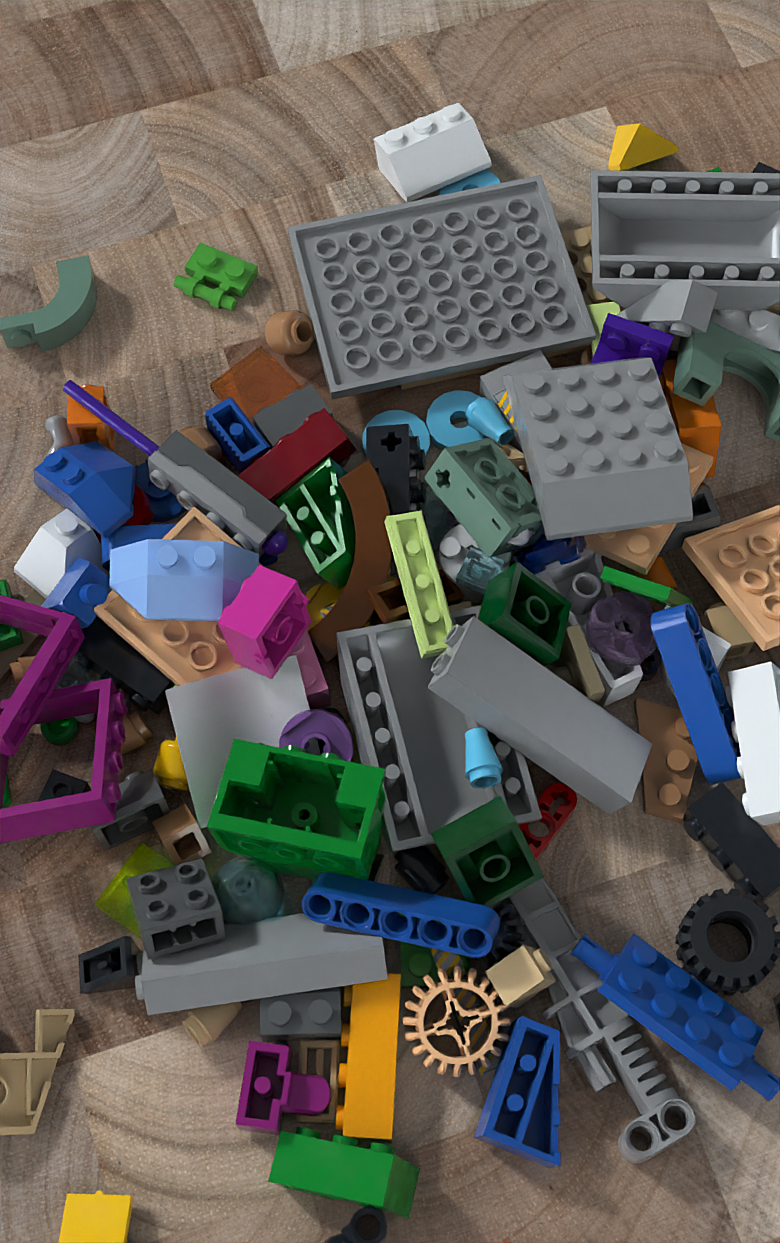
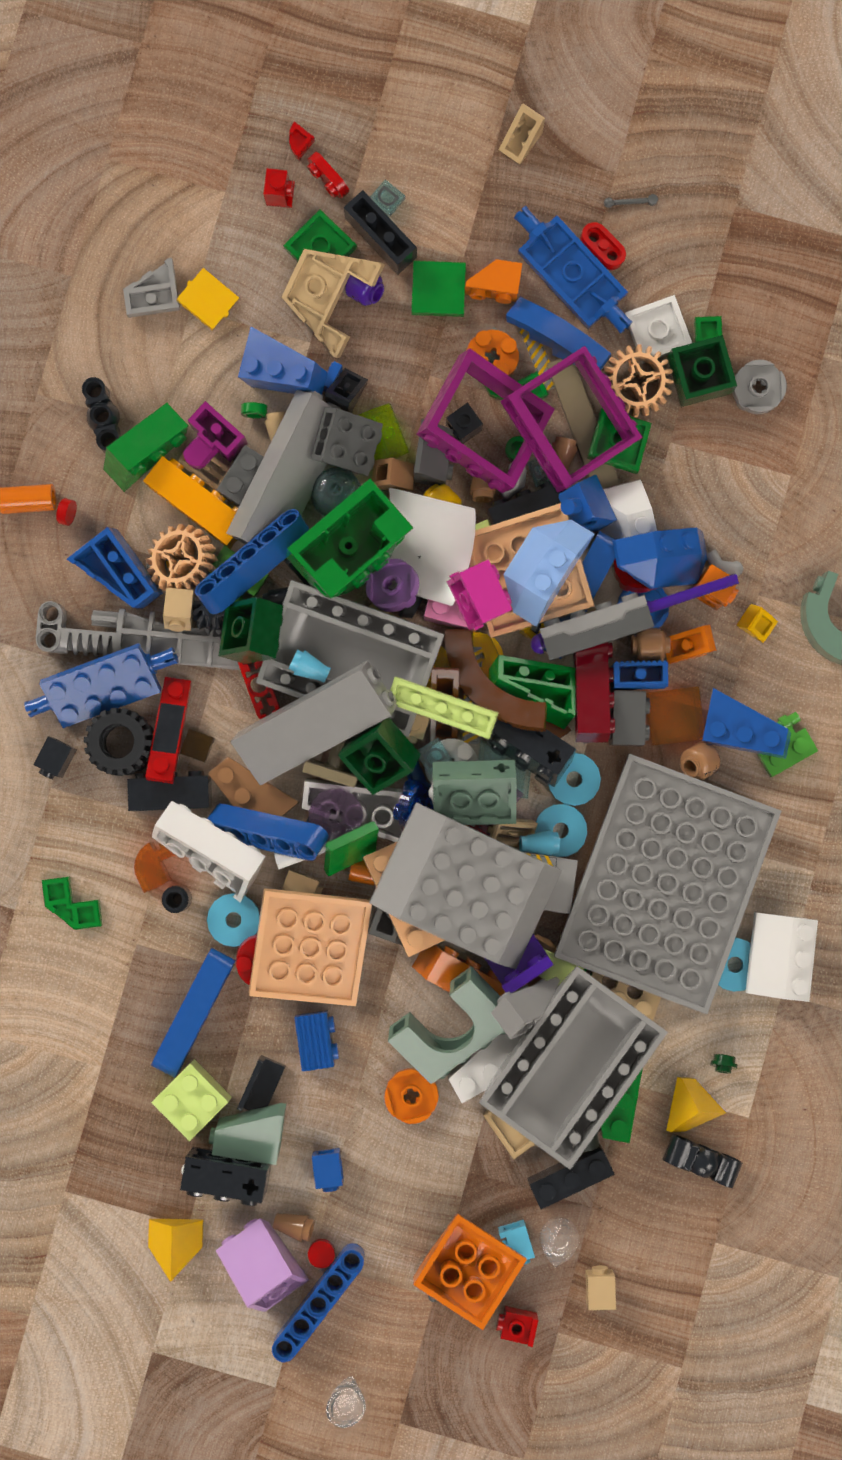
camera: 125 degrees right, 20 degrees up
(102, 372) = (757, 622): none -> yellow slope
(103, 995) = (333, 372): none -> blue tile
(130, 1064) = (277, 367): none -> wedge
(166, 408) = (691, 644): none -> orange slope
(206, 1065) = (254, 410): none -> green tile
(227, 310) = (744, 729): none -> blue wedge
(498, 1221) = (66, 511): none -> red tile
(573, 146) = (724, 1063): none -> dark green plate
(660, 855) = (197, 745): none -> dark brown tile
(669, 893) = (168, 730): none -> red plate
(680, 109) = (702, 1161): none -> black piece

